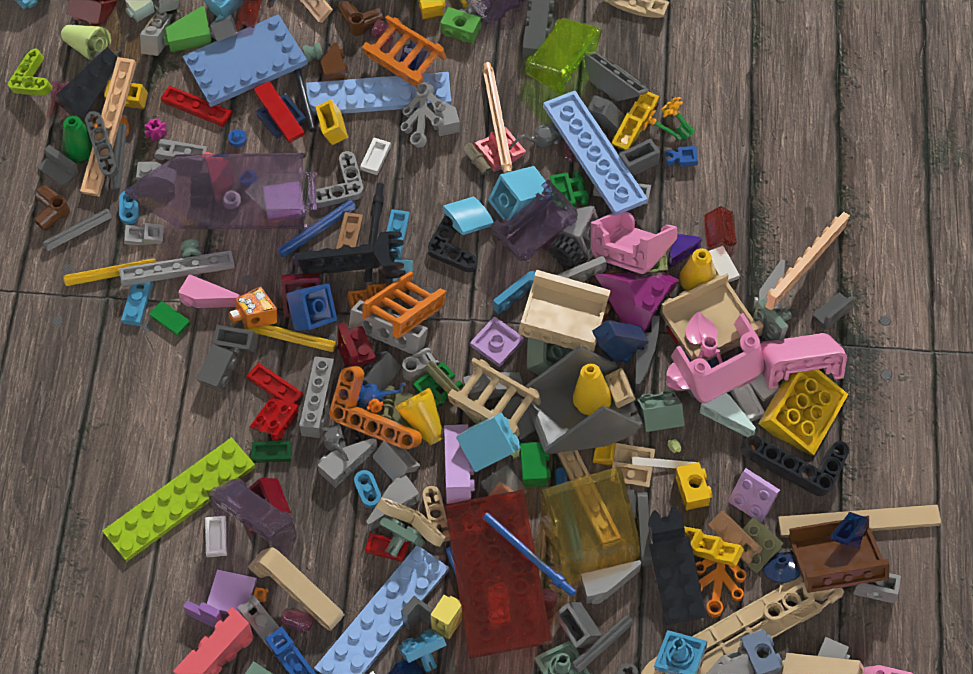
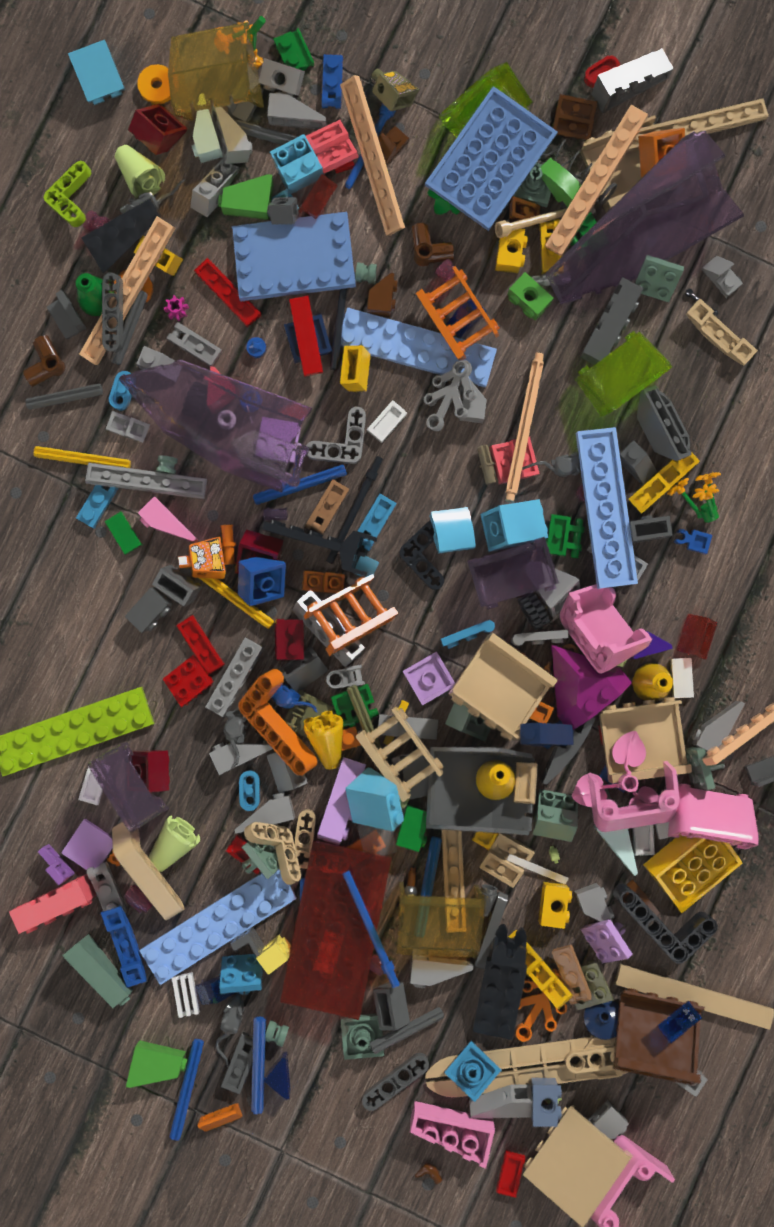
camera: 15 degrees right, 25 degrees up
(266, 285) = (228, 544): none -> orange pin
(271, 451) = (173, 714): dark green tile -> none
(312, 554) = (173, 843): none -> yellowish green cone
(375, 406) = (284, 711): orange piece -> none
(446, 414) = (349, 739): none -> orange plate
(725, 470) = (592, 902): none -> light grey slope

